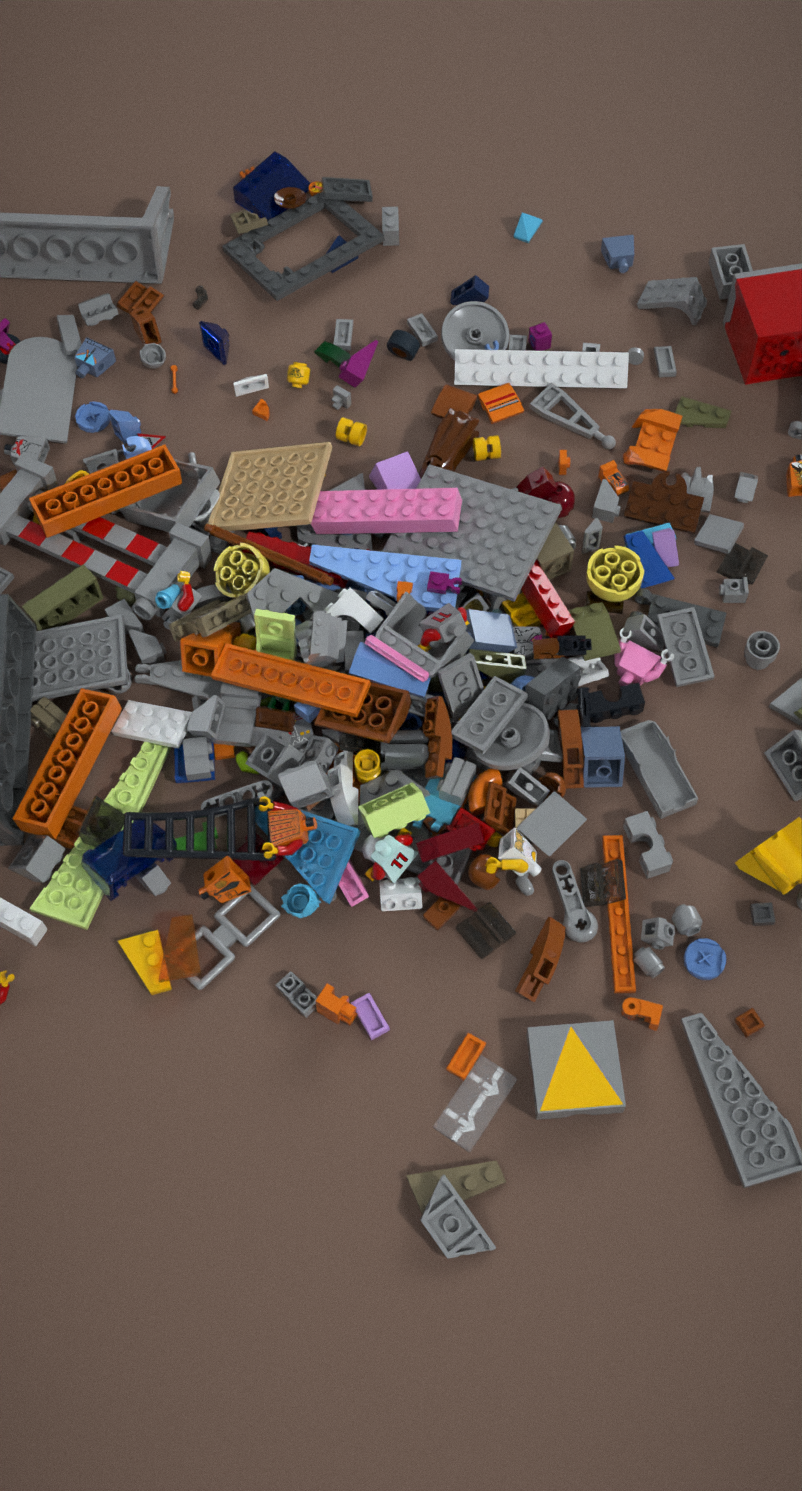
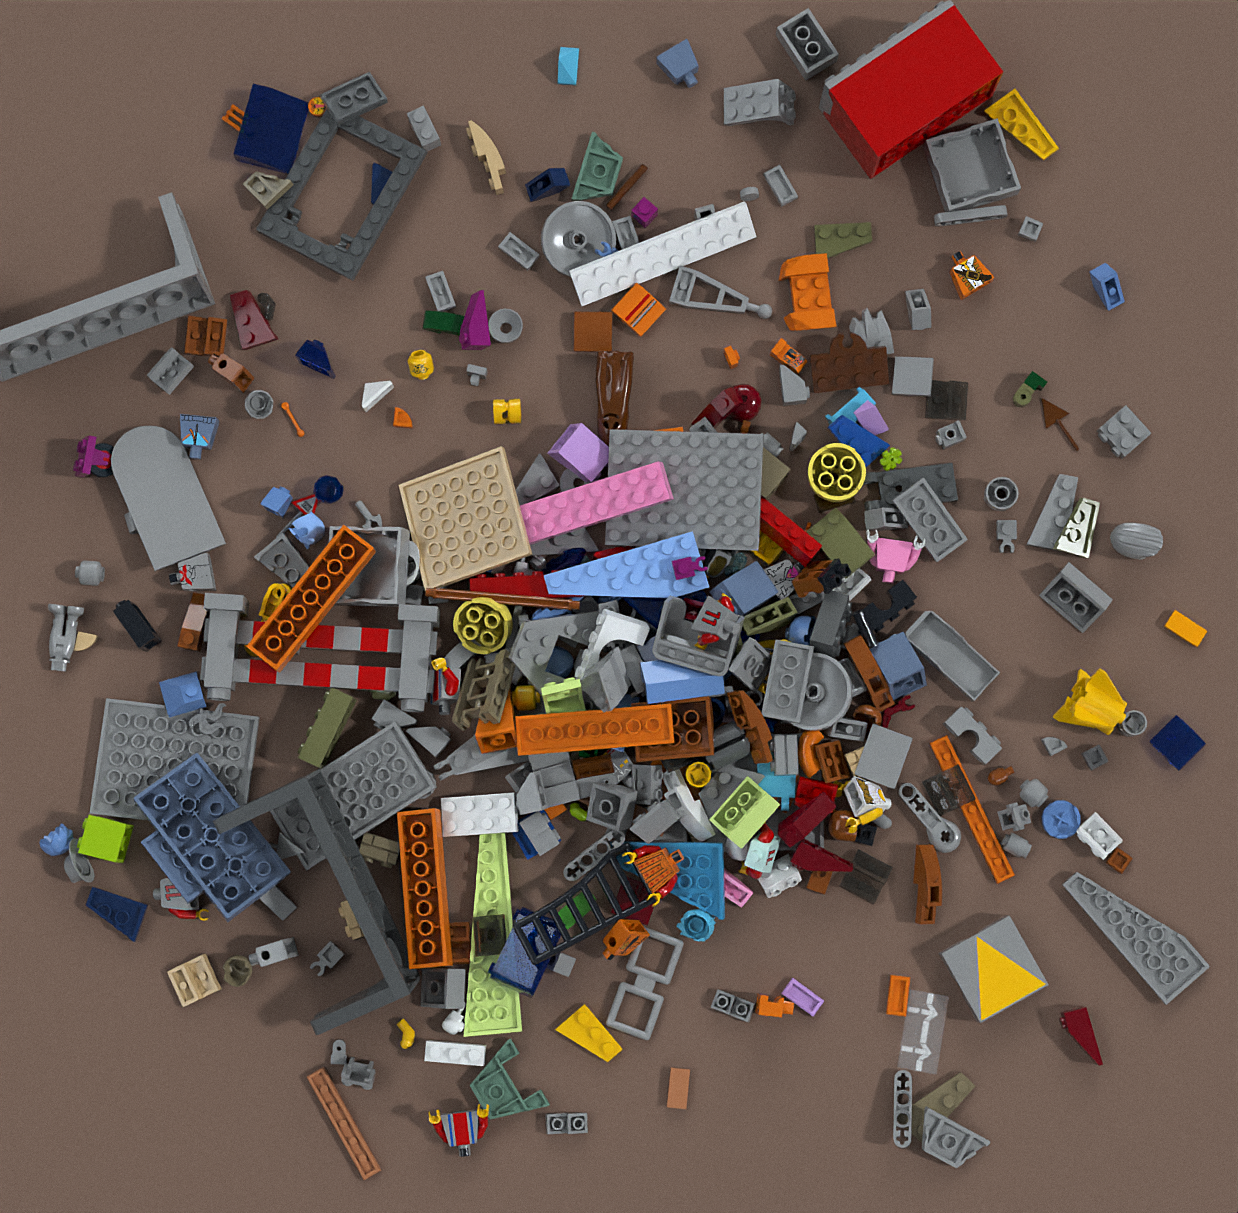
camera: 25 degrees left, 20 degrees up
(28, 893) = (454, 1022): none -> white piece
(34, 972) = (497, 1089): none -> sand green wing
(69, 334) = (156, 413): light grey tile -> none
(80, 1034) = (566, 1123): none -> light grey slope
(92, 417) = (234, 501): medium blue tile -> none
(166, 597) = (433, 689): medium azure cone -> none
(171, 433) = (328, 489): none -> clear blue hair
(181, 302) = (250, 322): none -> wing
(181, 951) = (616, 1015): clear orange wing -> none
(205, 1049) = (678, 1088): none -> nougat tile
(290, 197) = (299, 130): reddish brown dish -> none
(379, 601) = (642, 609): light grey plate -> none
(383, 368) = (505, 316): none -> light grey piece
(397, 658) = (684, 669): bright pink axle -> none
(403, 345) = (510, 282): black wheel -> none
(403, 587) = (654, 586): orange piece -> none
(416, 1168) = (902, 1109): none -> light grey beam
(431, 260) = (486, 150): none -> tan slope
(480, 448) = (650, 373): yellow wheel -> none
(502, 891) = (865, 834): none -> black tile
(517, 298) = (598, 171): none -> sand green wing
(534, 319) = (626, 187): none -> reddish brown bar
(590, 794) = (900, 706): none -> dark red piece
(640, 1170) = (1080, 1029): none -> dark red slope
(642, 1010) = (1021, 892): orange leg -> none
(659, 892) = (999, 775): none -> dark orange cylinder
(670, 587) = (891, 458): none -> lime plant
(725, 888) = (1053, 745): none -> light grey tile
(738, 988) = (1098, 836): none -> white bracket
(753, 689) = (1006, 531): none -> light grey plate

